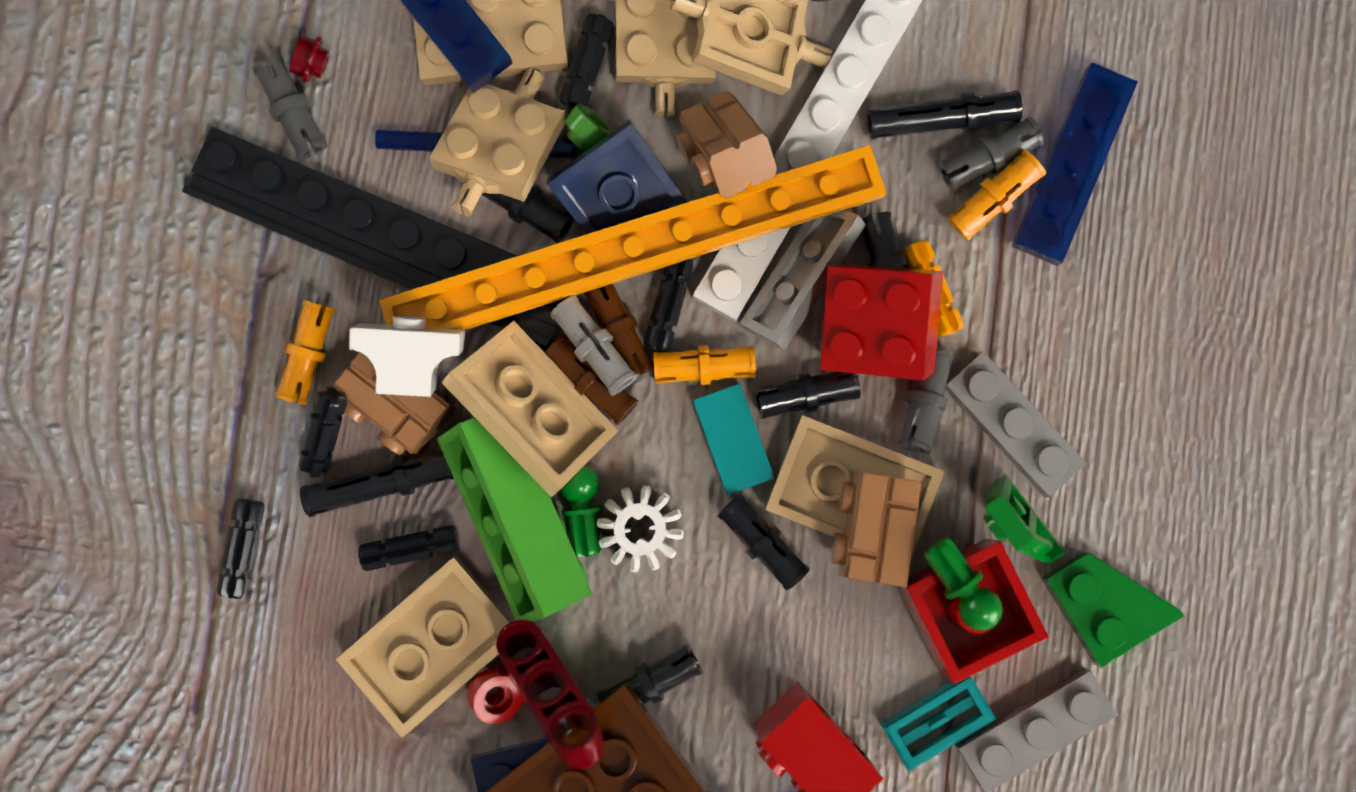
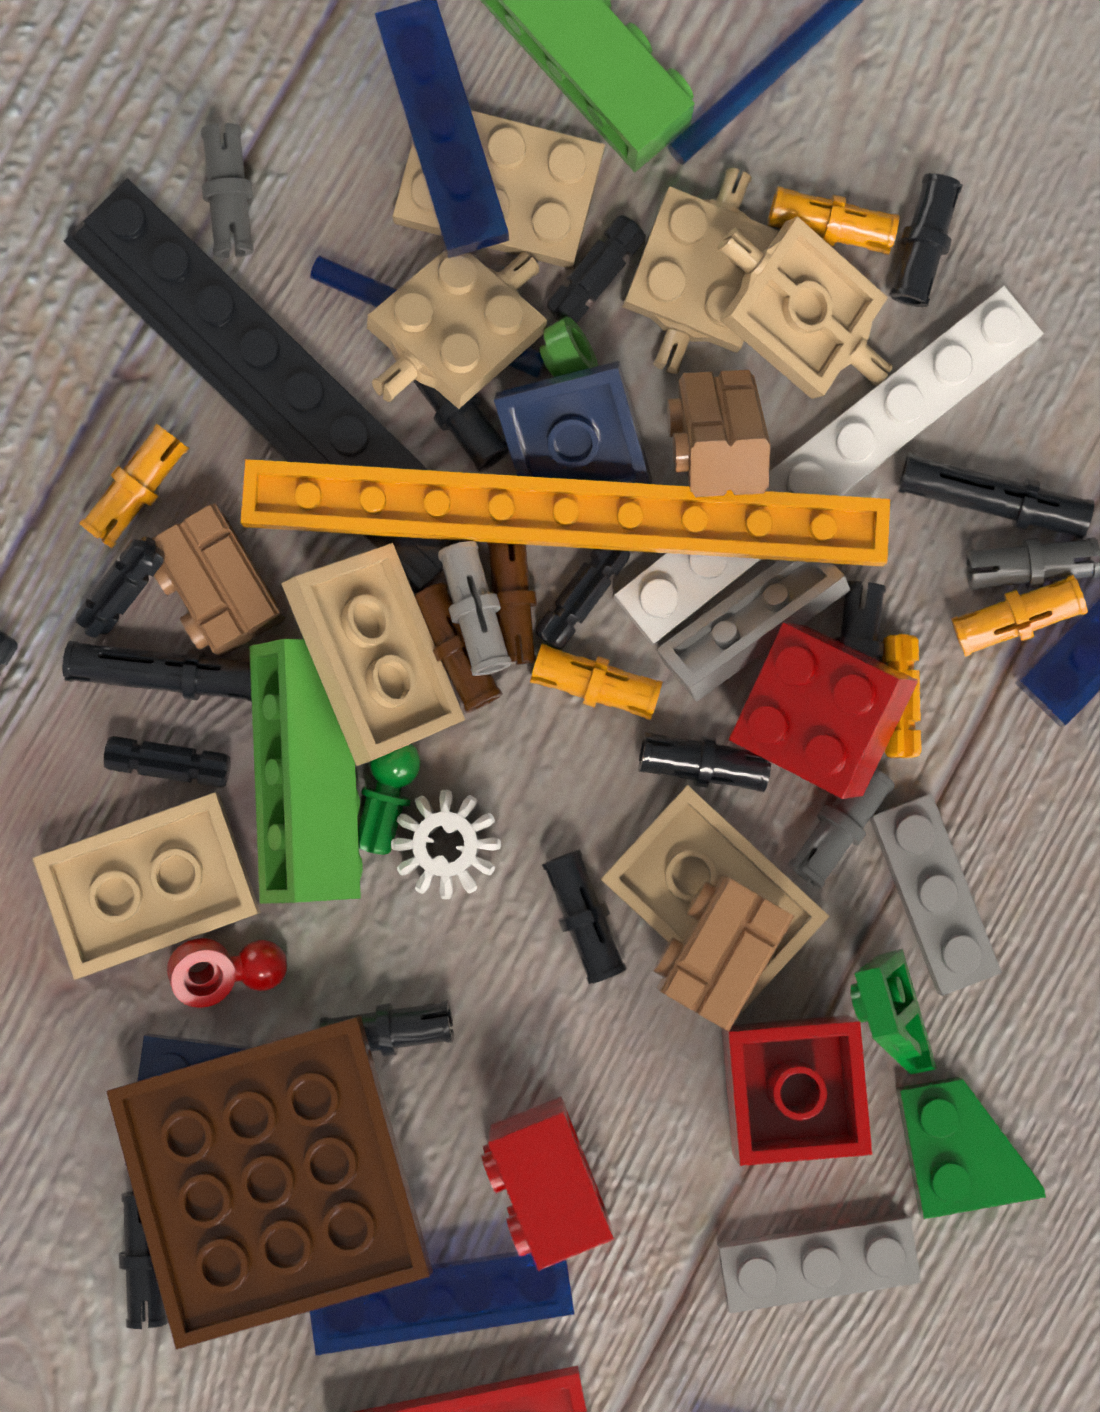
camera: 15 degrees right, 0 degrees up
(309, 58) = (272, 142): dark red plate -> none
(406, 353) = (254, 534): white brick -> none
(557, 715) = (274, 1019): dark red beam -> none
(733, 439) = (596, 782): teal tile -> none
(946, 739) = (703, 1181): teal tile -> none
(977, 606) = (802, 1085): green axle -> none

